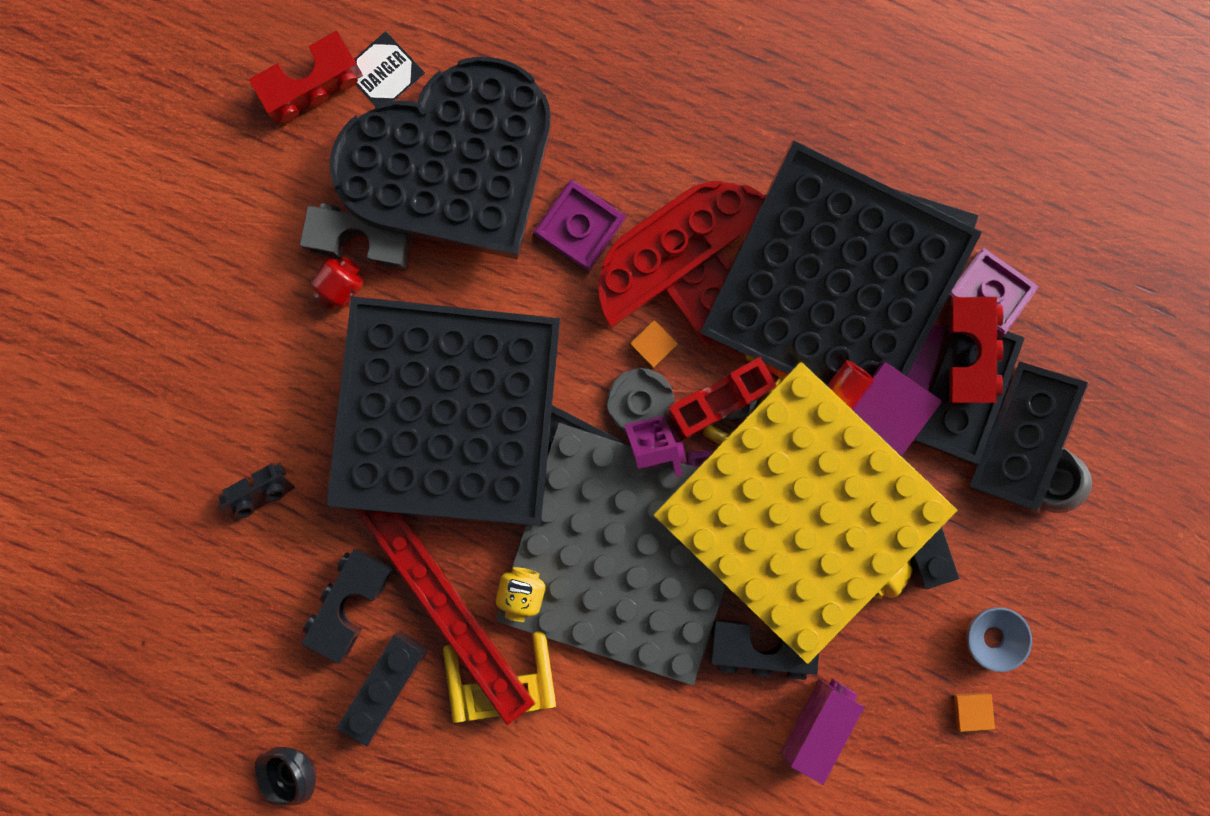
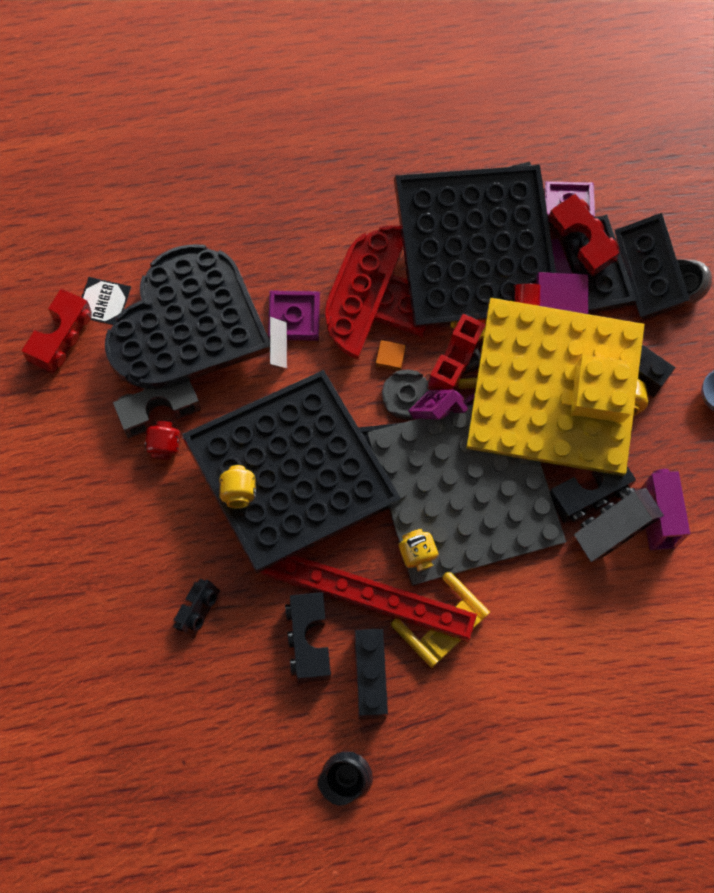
camera: 35 degrees left, 15 degrees down
(365, 400) = (237, 487): none -> yellow head
(531, 253) = (278, 342): none -> white sticker
(757, 715) = (618, 523): none -> black brick
(847, 560) = (603, 388): none -> yellow brick

